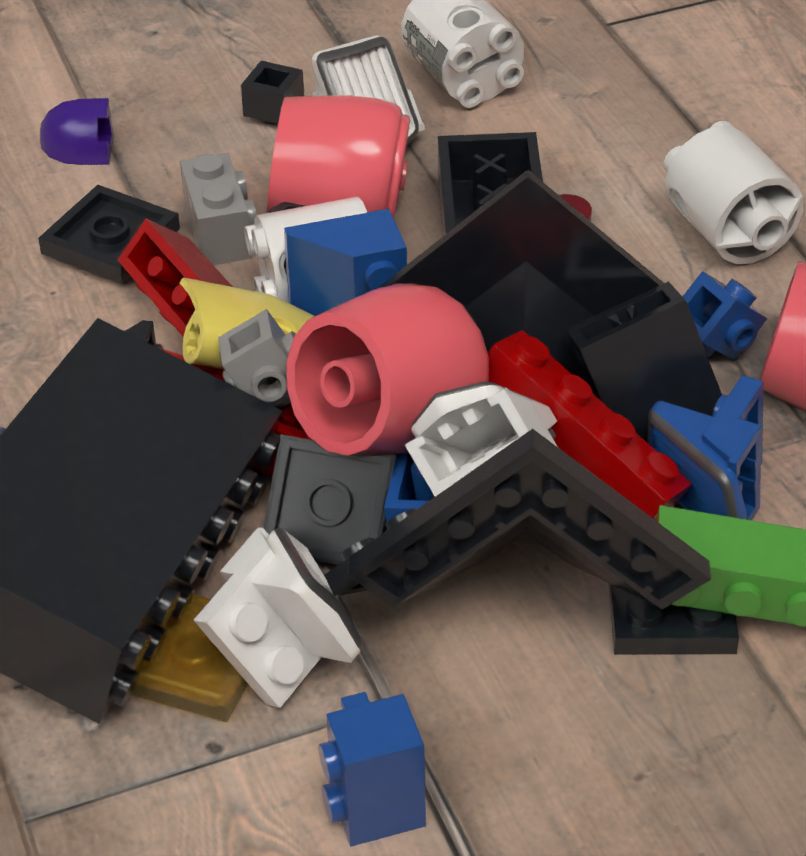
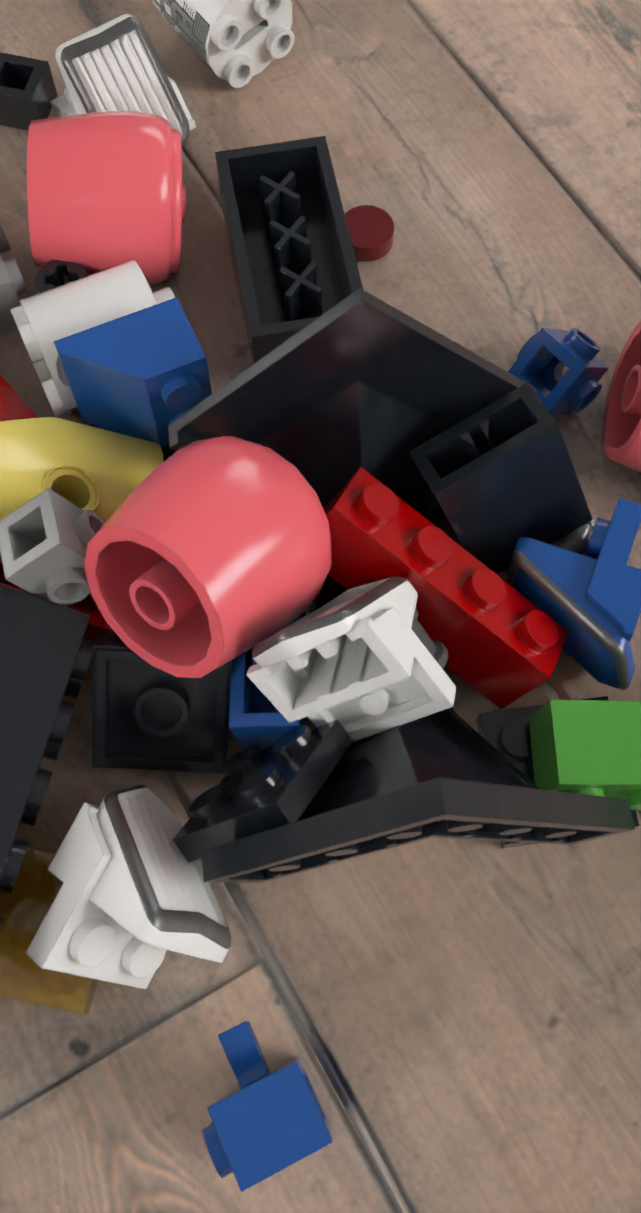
camera: 10 degrees left, 25 degrees up
(733, 194) = (550, 196): white cylinder -> none

